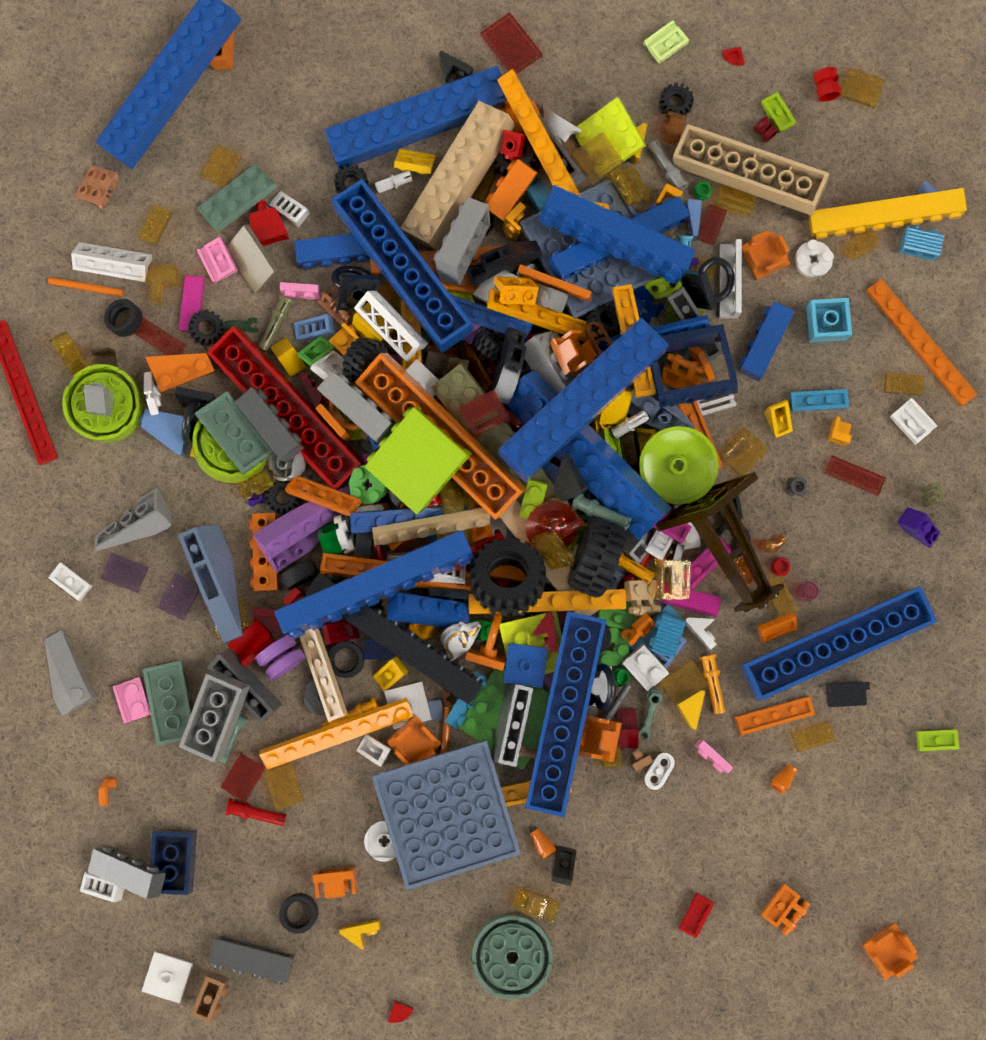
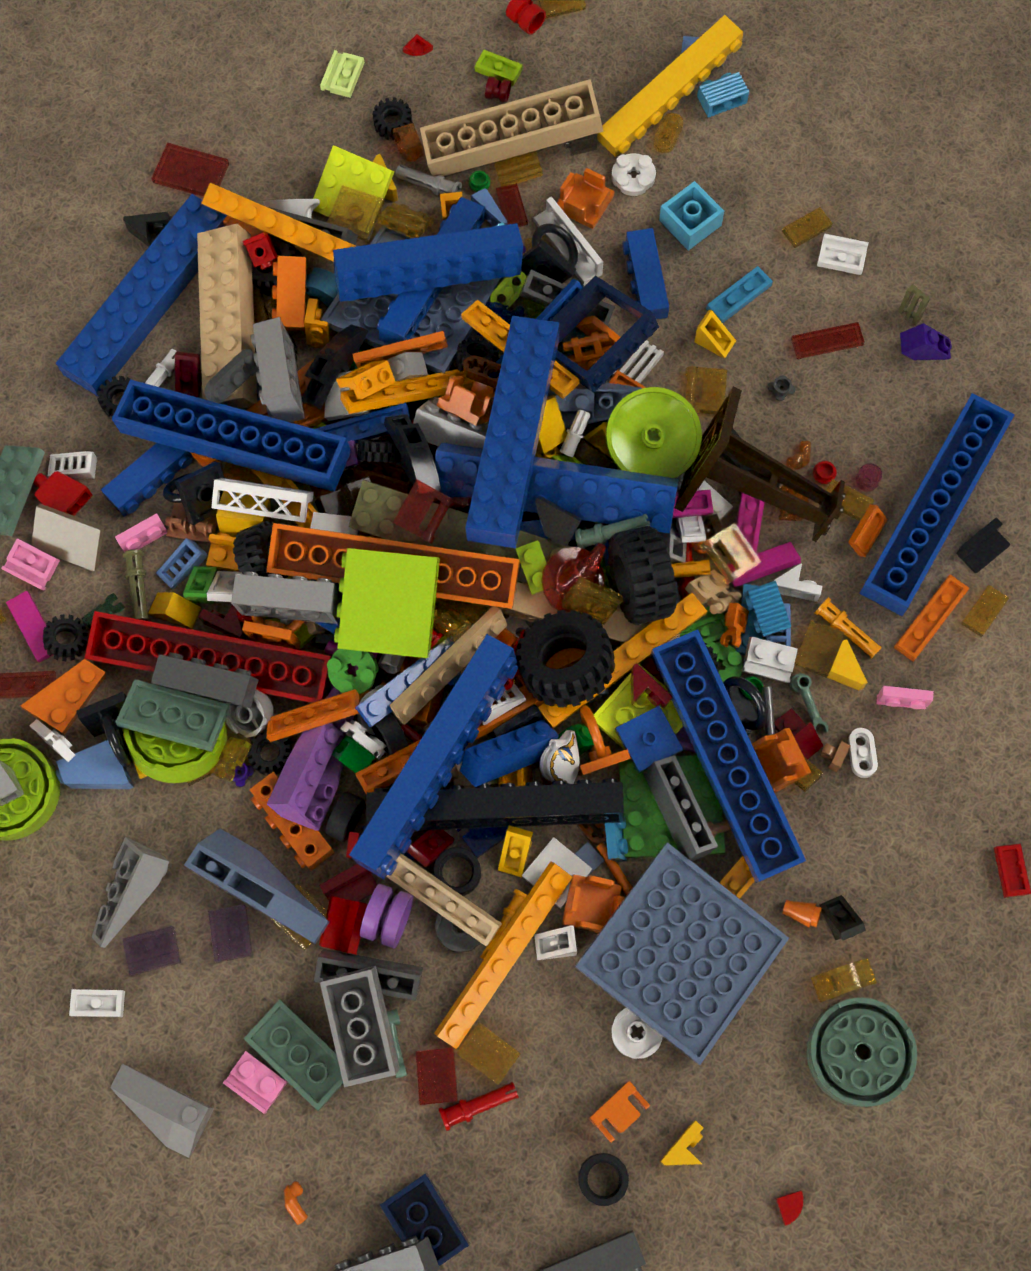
camera: 30 degrees left, 10 degrees down
(405, 198) = (188, 374): none -> dark red slope
(414, 161) = (166, 338): yellow plate -> none
(427, 225) = (231, 377): none -> dark grey plate
(783, 780) = (990, 674): orange cone -> none
(839, 432) = (781, 310): light orange panel -> none
(921, 342) = (793, 181): orange plate -> none

